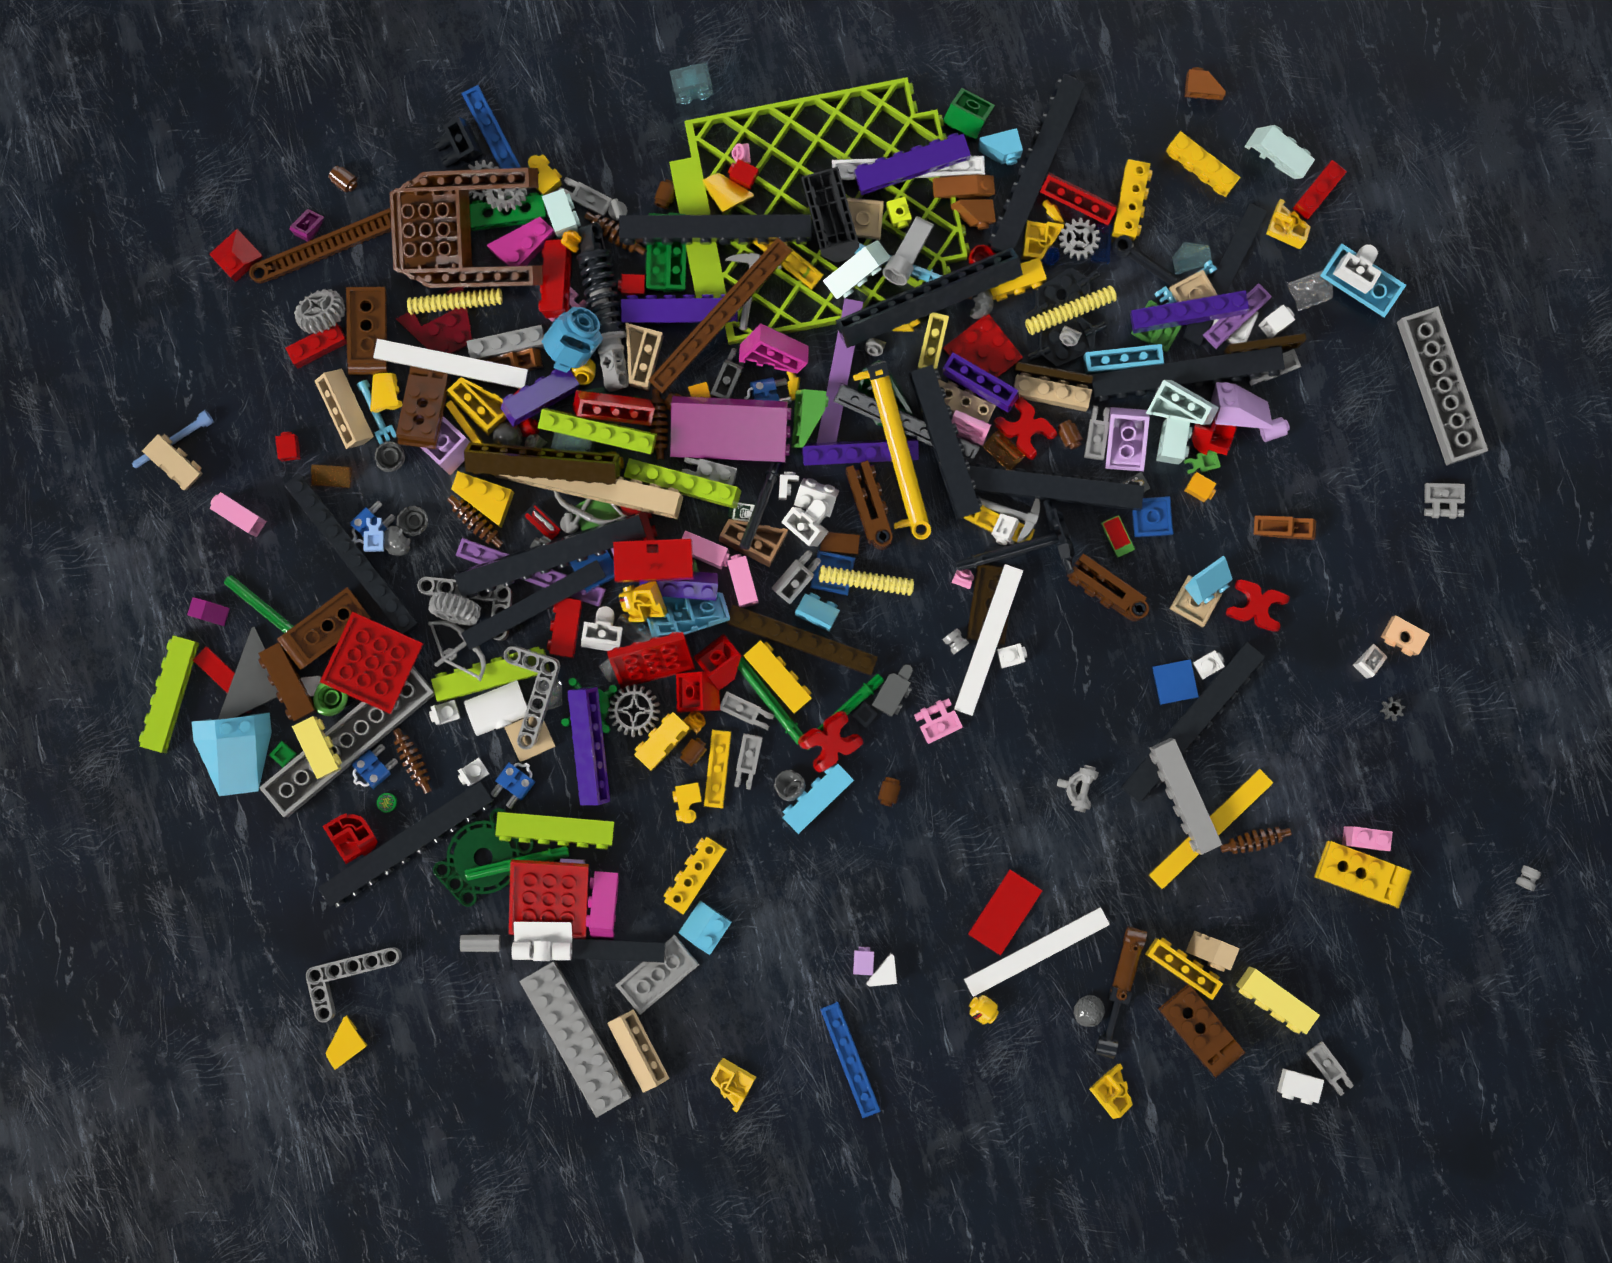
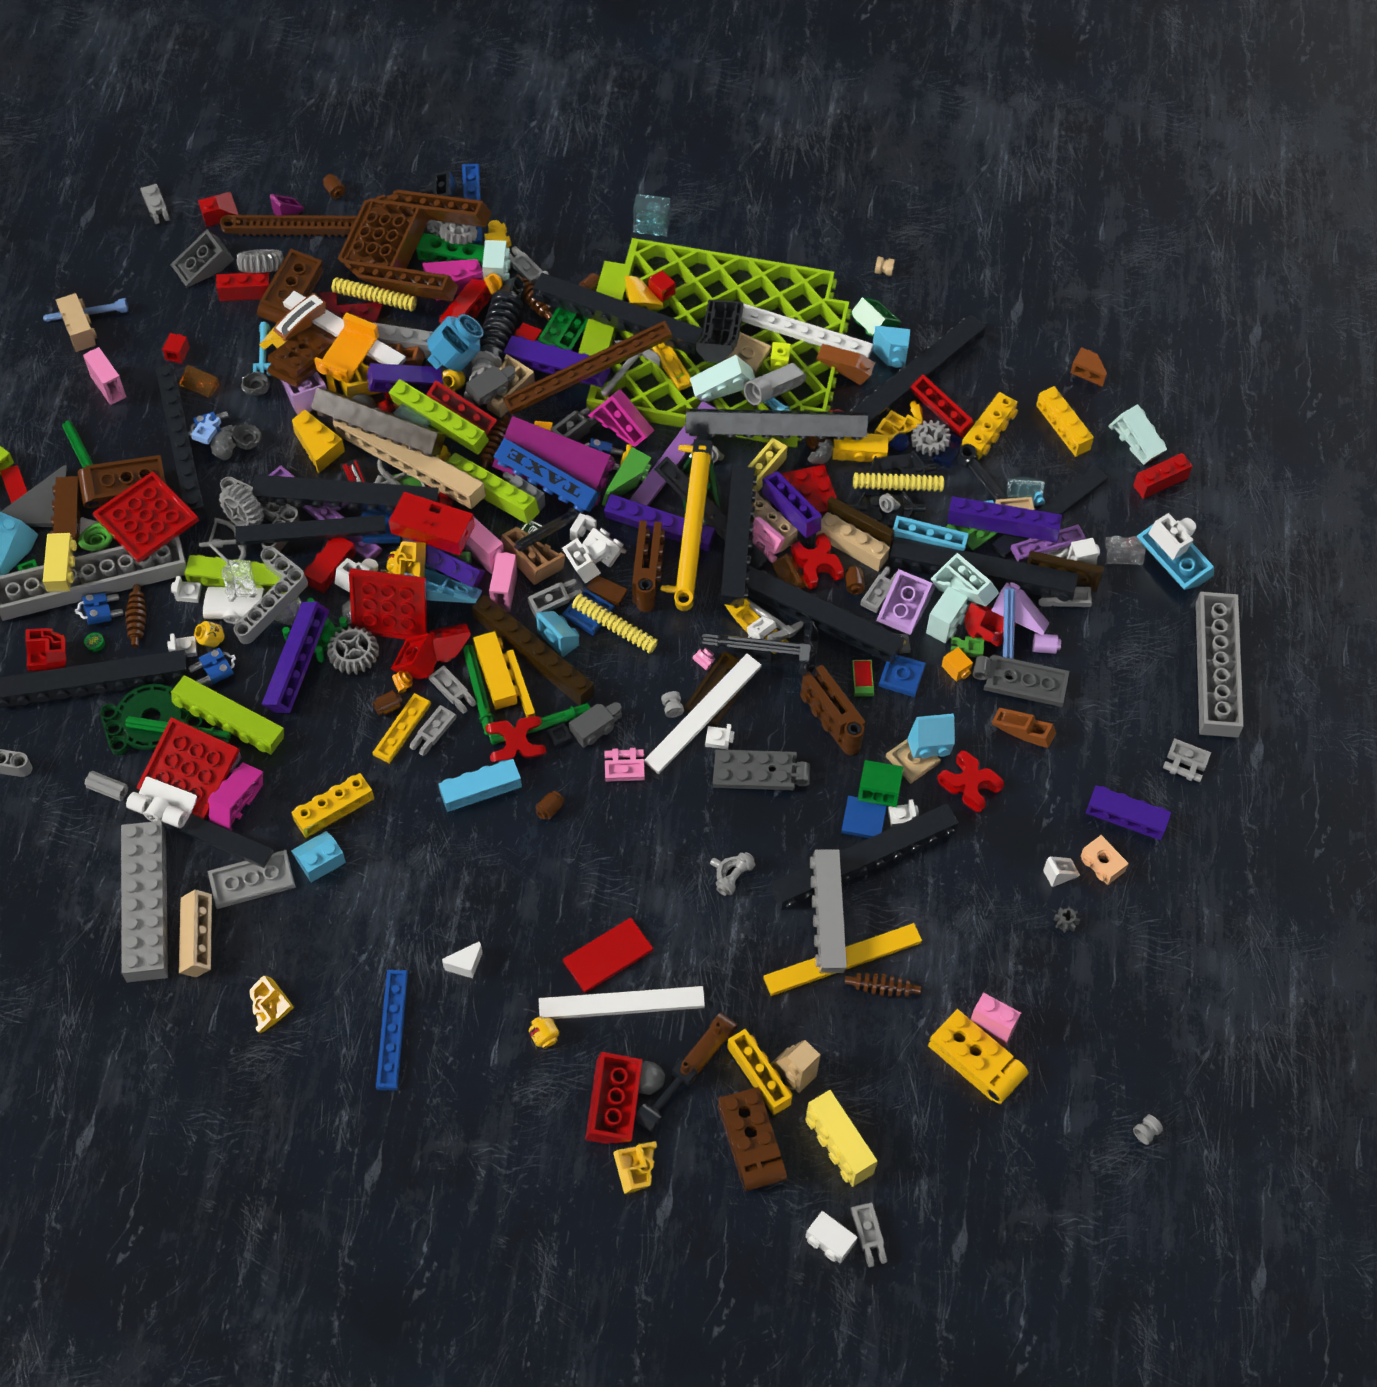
camera: 20 degrees right, 25 degrees down
(166, 276) = (154, 202): none -> light grey hinge
(208, 611) = (37, 441): magenta slope -> none
(256, 329) = (202, 259): none -> dark grey slope
(344, 408) = (238, 336): tan brick -> none
(402, 372) = (300, 317): none -> slope
(468, 389) = (348, 348): none -> light orange panel
(475, 521) = (298, 455): reddish brown piece -> none
(493, 753) = (209, 634): none -> yellow head
(494, 689) = (239, 579): none -> clear bracket
(543, 743) = (258, 647): tan tile -> none
(629, 372) = (490, 384): none -> dark grey hinge
(662, 741) = (365, 681): yellow wedge -> none
(685, 796) = (360, 736): yellow brick -> none
(732, 451) = (547, 475): none -> blue brick
(741, 152) = (669, 270): bright pink plate -> none
(789, 785) = (459, 763): dark grey hair -> none
(808, 682) = (518, 680): none -> yellow tile
(863, 961) = (449, 941): lavender brick -> none
(908, 327) = (747, 448): yellow bar -> none
(912, 163) = (807, 324): dark purple brick -> none
(952, 44) = (884, 266): none -> tan wheel
(976, 212) = (847, 384): dark orange slope -> none
(1055, 676) = (751, 770): none -> dark grey hinge
(1071, 1046) = (613, 1099): none -> red slope
(1179, 645) = (880, 783): none -> green brick
(1237, 431) = (1009, 623): none -> medium blue axle
(1273, 476) = (1029, 679): none -> dark grey hinge
(1288, 226) = (1123, 496): yellow slope -> none
(1410, 577) = (1128, 812): none -> dark purple brick

